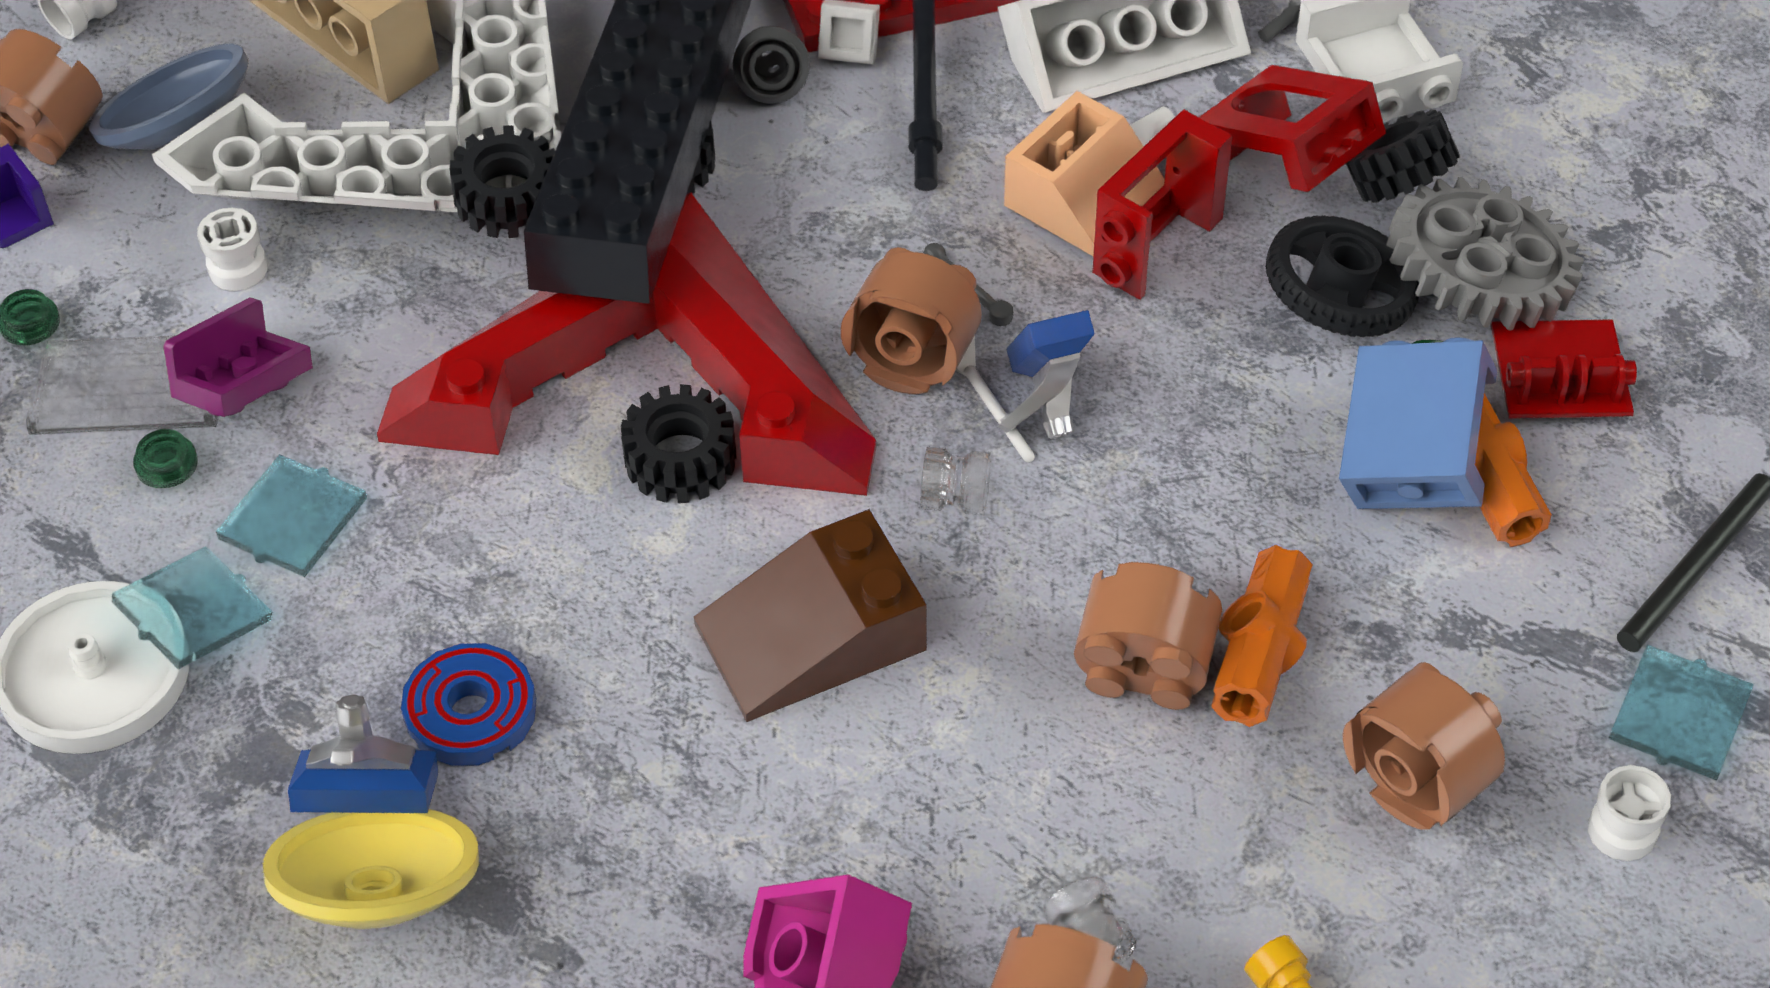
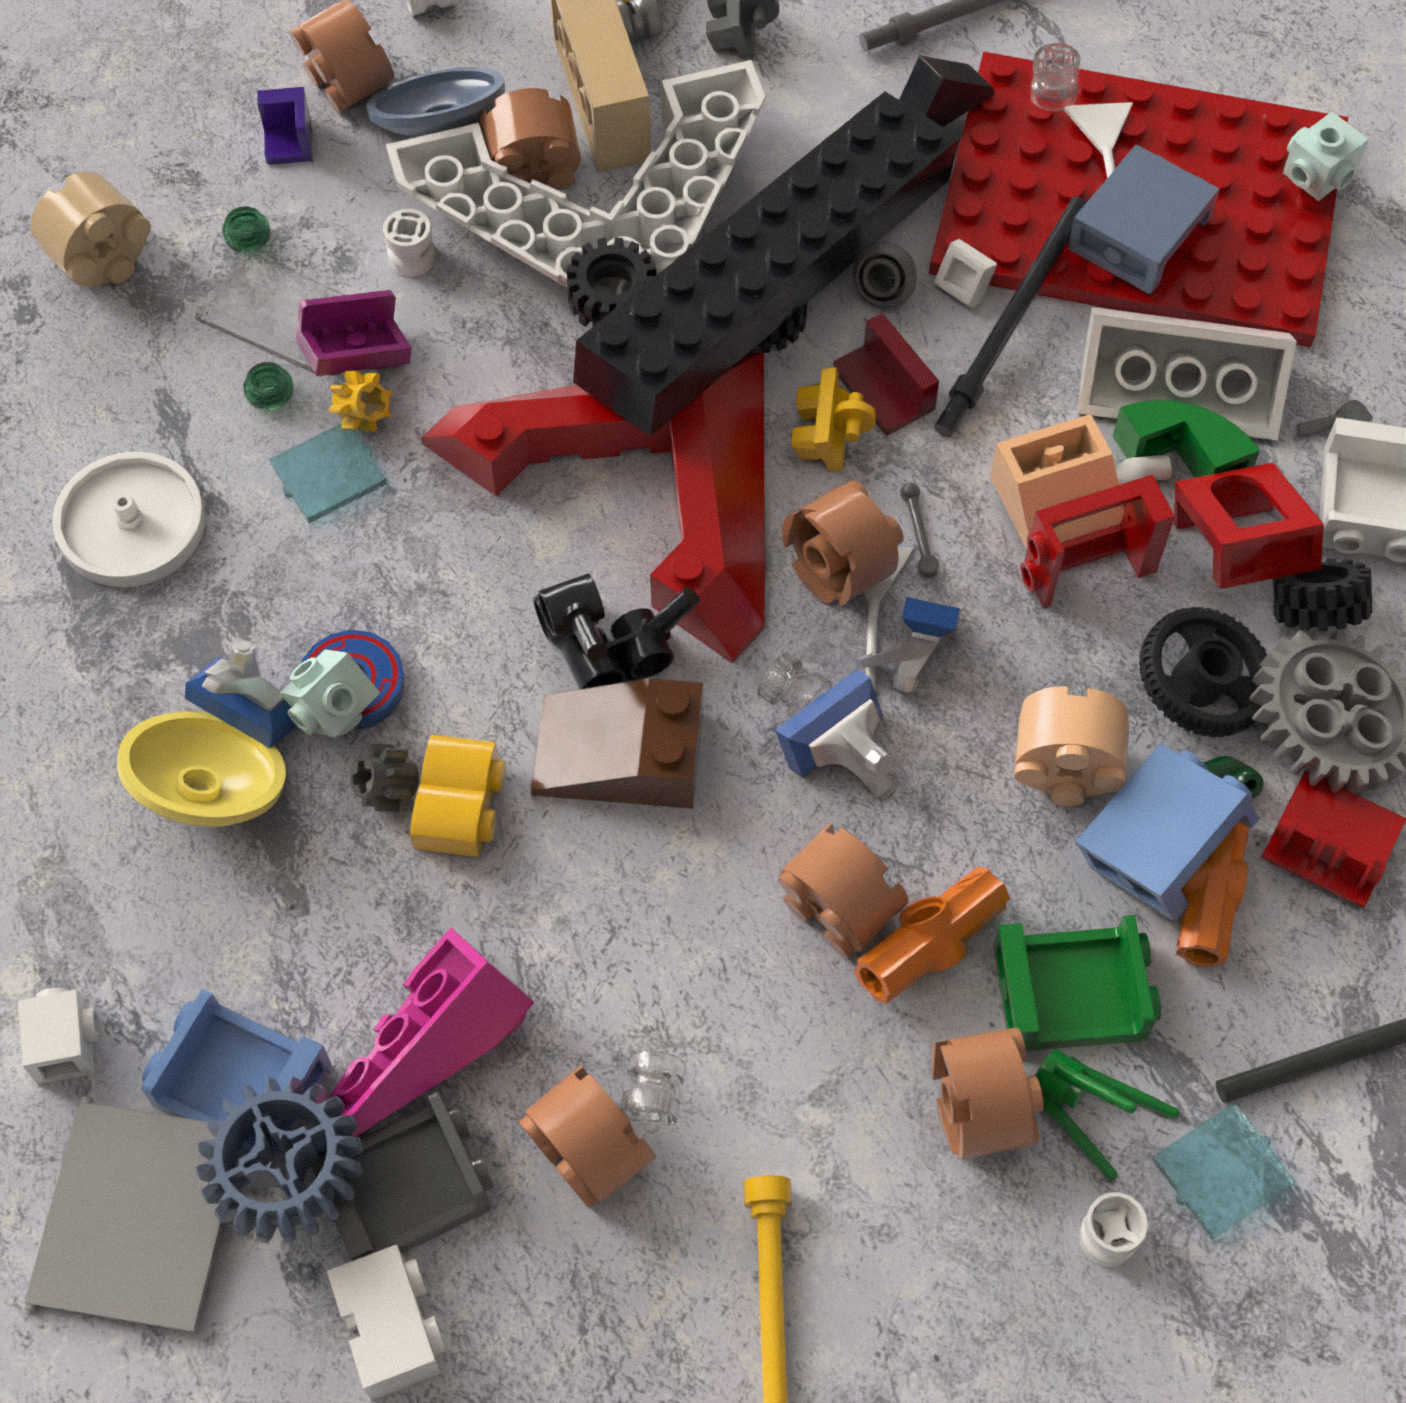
camera: 30 degrees right, 10 degrees up
(191, 607) = (215, 510): clear light blue piece -> none
(288, 423) = (360, 401): none -> yellow gear
(309, 81) = (533, 137): none -> nougat brick
(469, 713) = (328, 694): none -> light aqua brick
(582, 774) = (384, 777): none -> dark grey gear
(671, 417) = (618, 529): black tyre -> none
(674, 755) = (455, 796): none -> yellow brick
(675, 506) = (570, 609): none -> black beam
(758, 520) = (637, 648): none -> black beam
(830, 207) = (837, 417): none -> yellow hips
(838, 156) = (889, 376): none -> dark red panel
(1032, 496) = (839, 731): none -> piece
(1171, 76) = (1200, 436): none -> green brick
(1272, 393) = (1072, 744): none -> light nougat brick
(1433, 607) = (1076, 985): none -> green panel
(1503, 690) = (1068, 1080): none -> green plant

